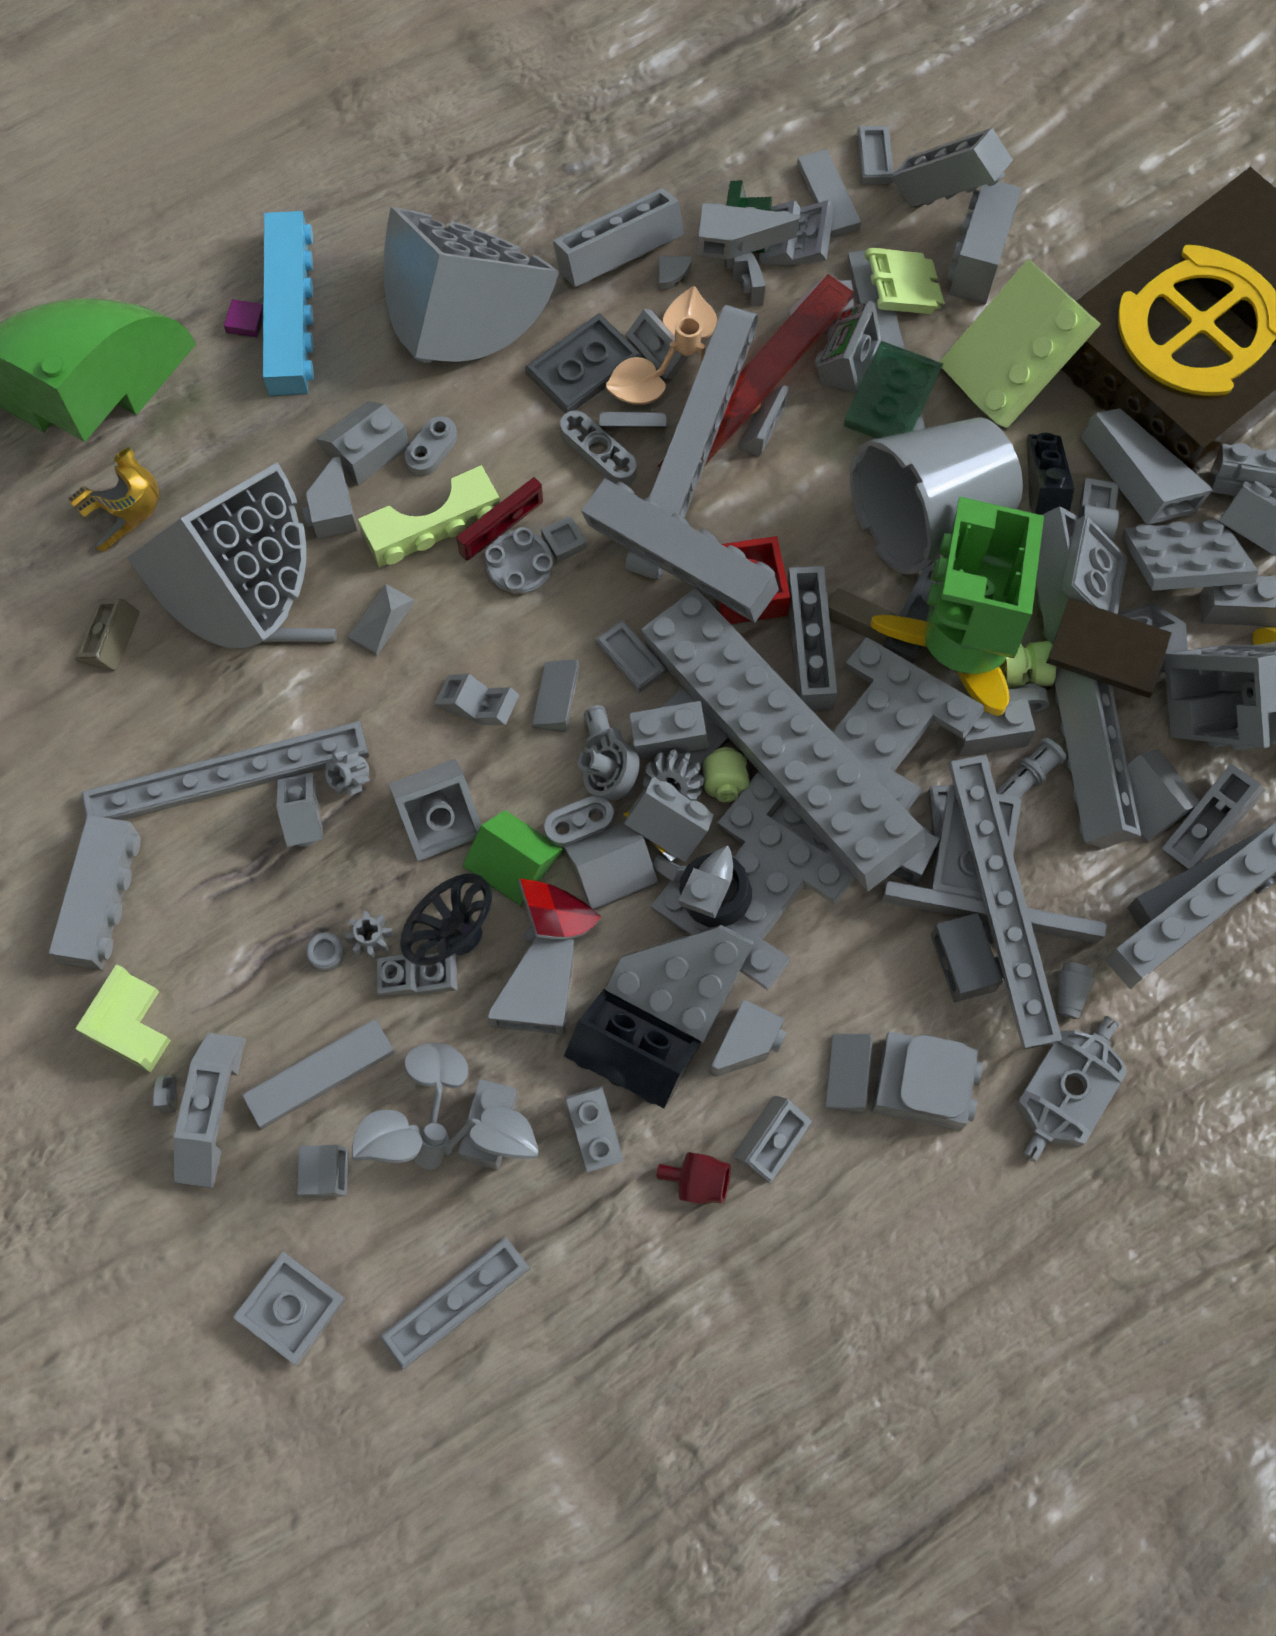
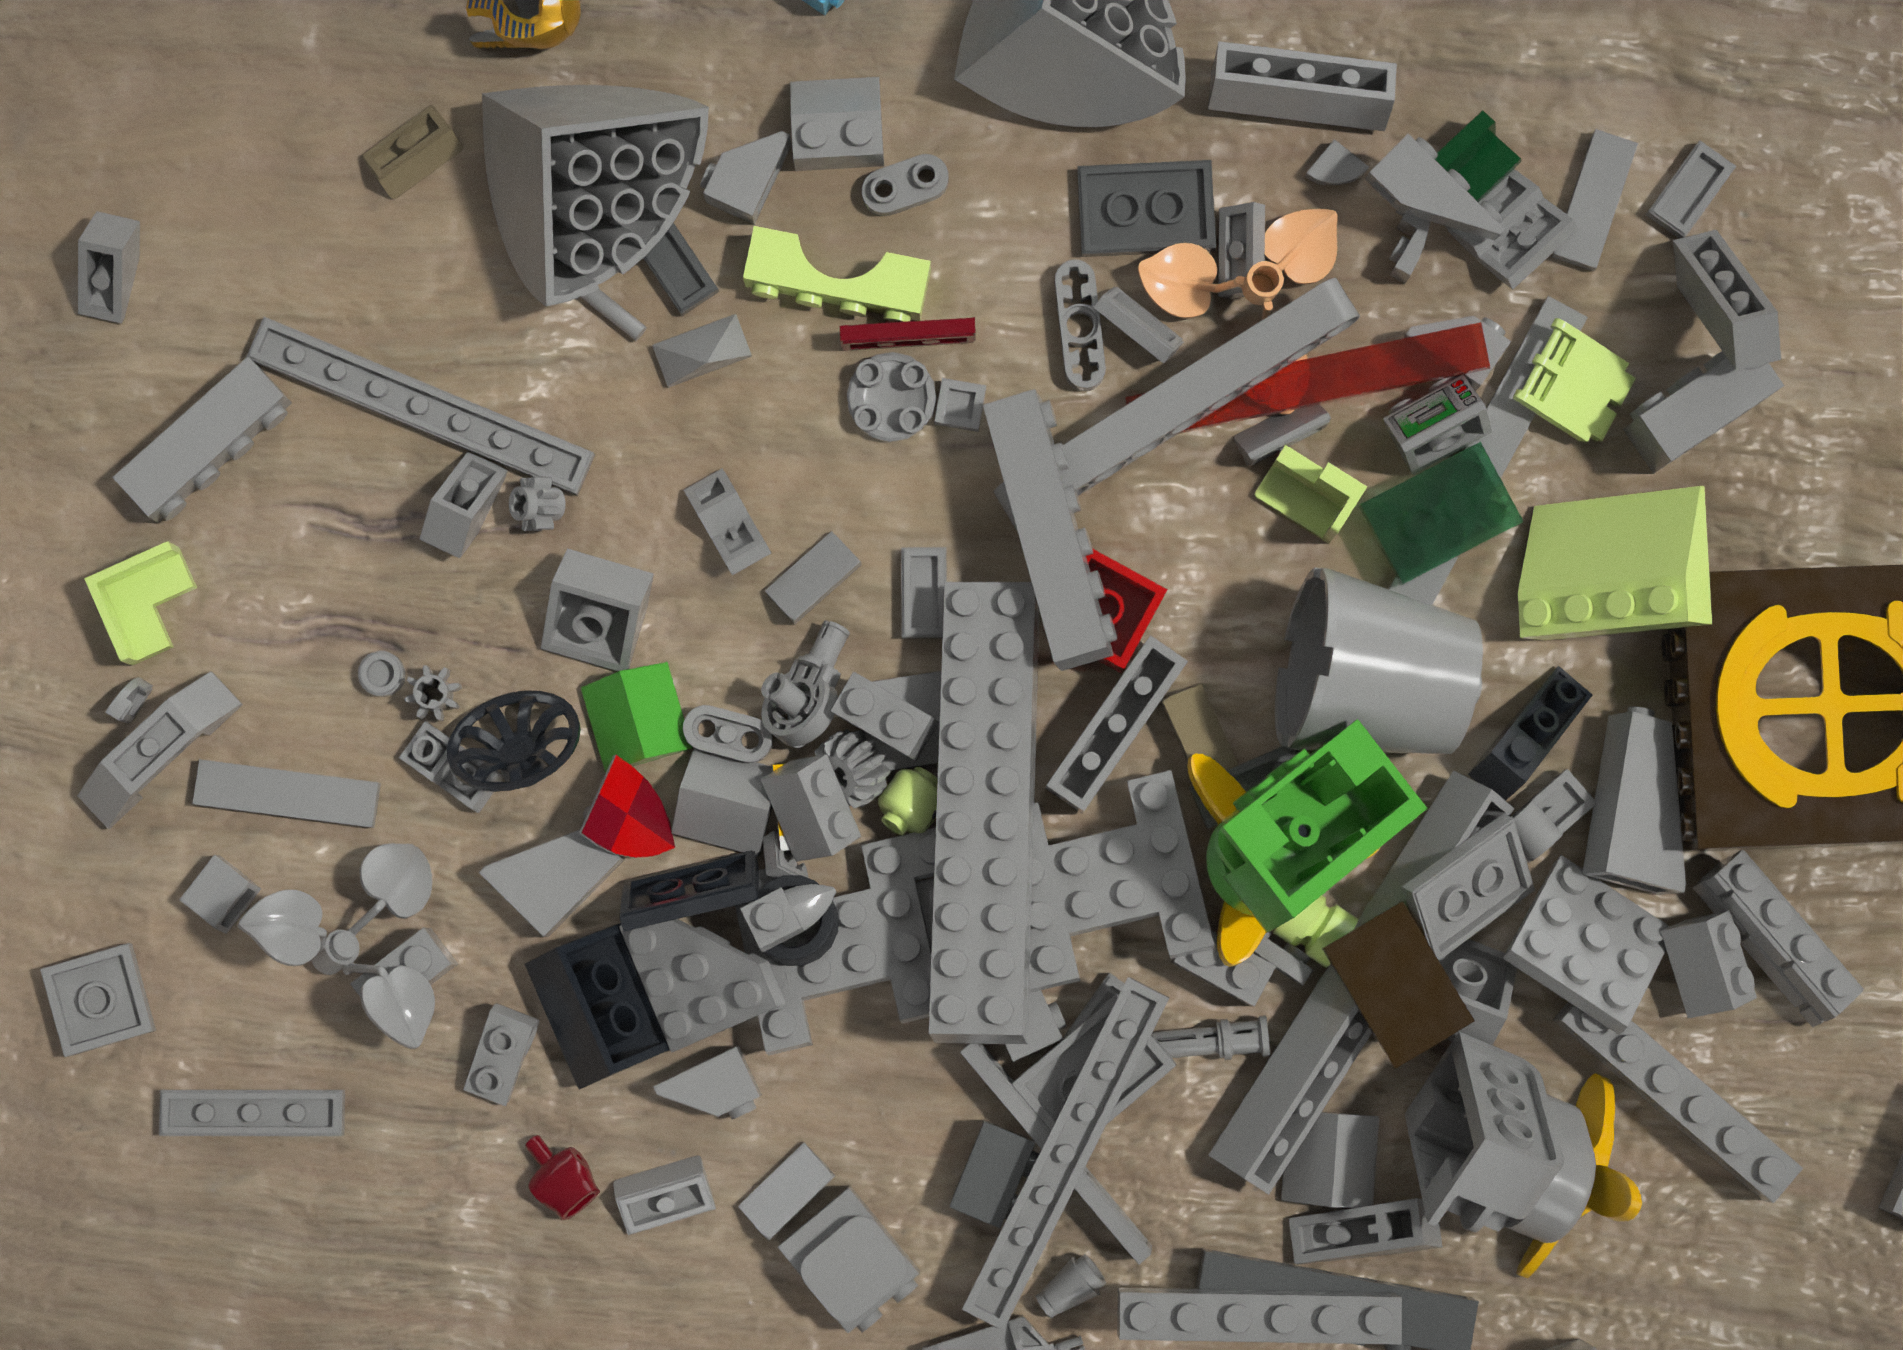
camera: 40 degrees right, 15 degrees up
(331, 585) = (680, 271): none -> dark grey tile
(634, 925) = (689, 890): none -> black tile
(812, 438) = (1309, 494): none -> yellowish green panel

